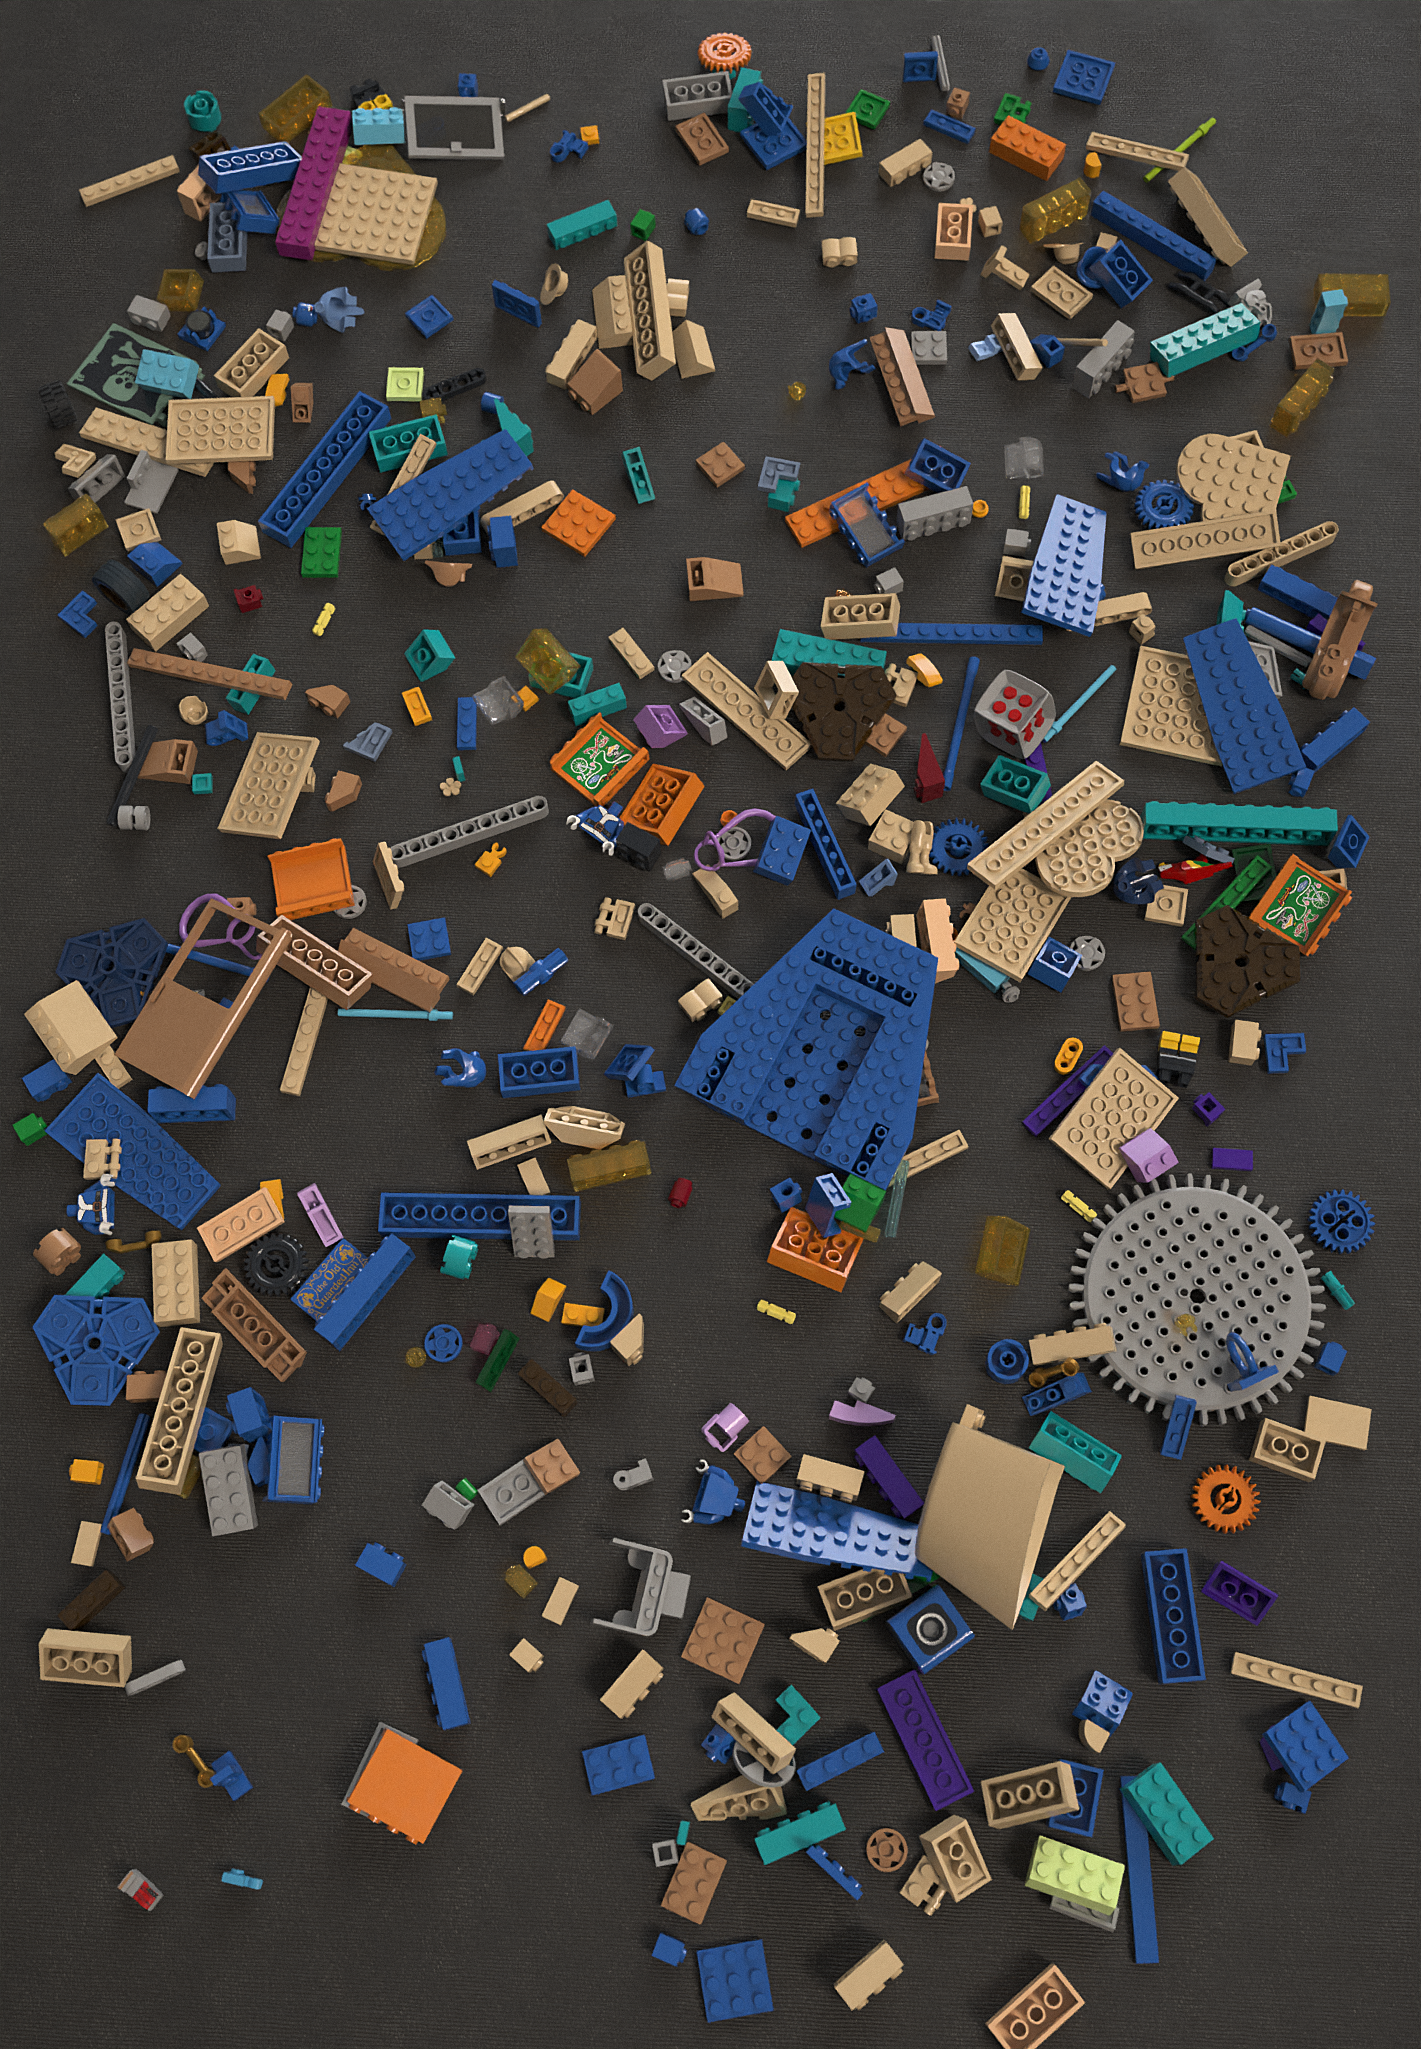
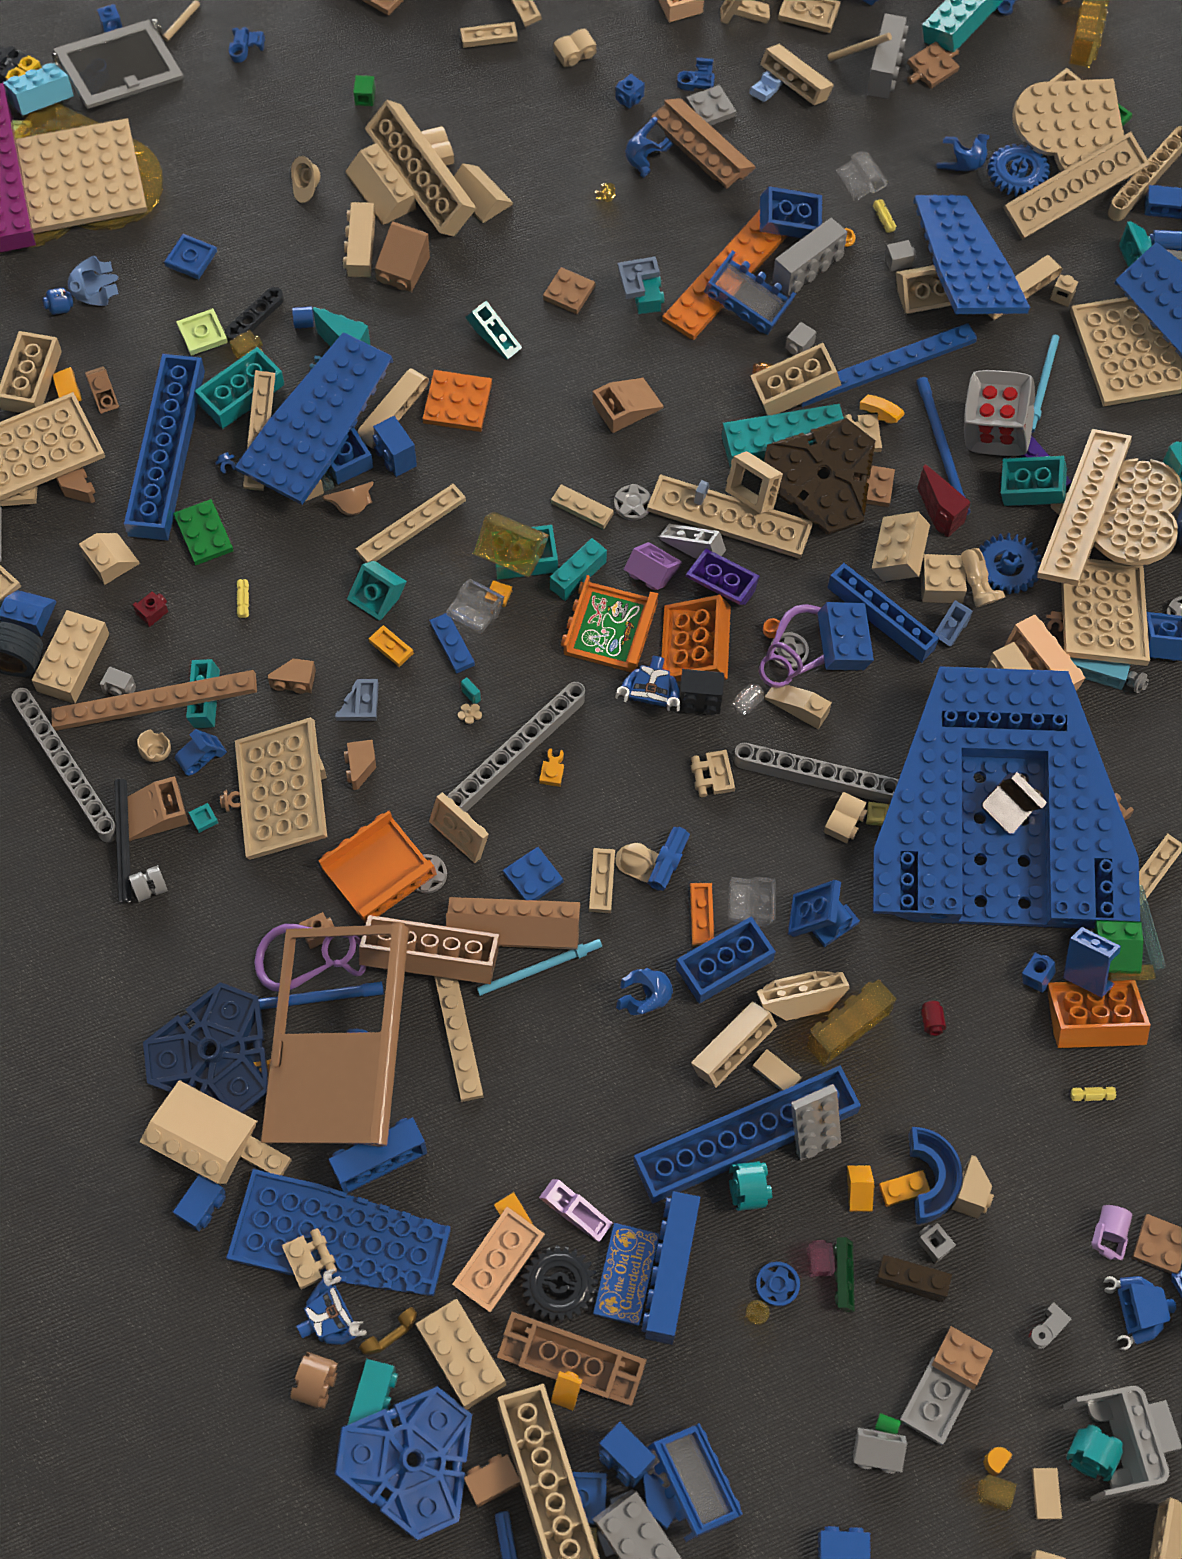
camera: 30 degrees left, 5 degrees down
(30, 1129) = (209, 1263): green brick -> none
(226, 776) = (226, 800): none -> medium nougat plate
(236, 1346) = (566, 1390): none -> light orange slope
(280, 325) = (36, 320): light grey brick -> none
(485, 612) = (411, 524): none -> tan plate
(516, 303) = (279, 210): blue plate -> none
(582, 224) = (302, 112): teal brick -> none
(590, 134) = (260, 23): light orange plate -> none
(611, 1588) = (1095, 1453): none -> teal brick
(696, 221) = (416, 68): blue head -> none
(707, 760) = (723, 577): none -> dark purple slope
(730, 680) = (701, 492): none -> sand blue tile
(834, 1047) = (1012, 802): none -> bracket
(1048, 349) = (829, 65): blue slope -> none

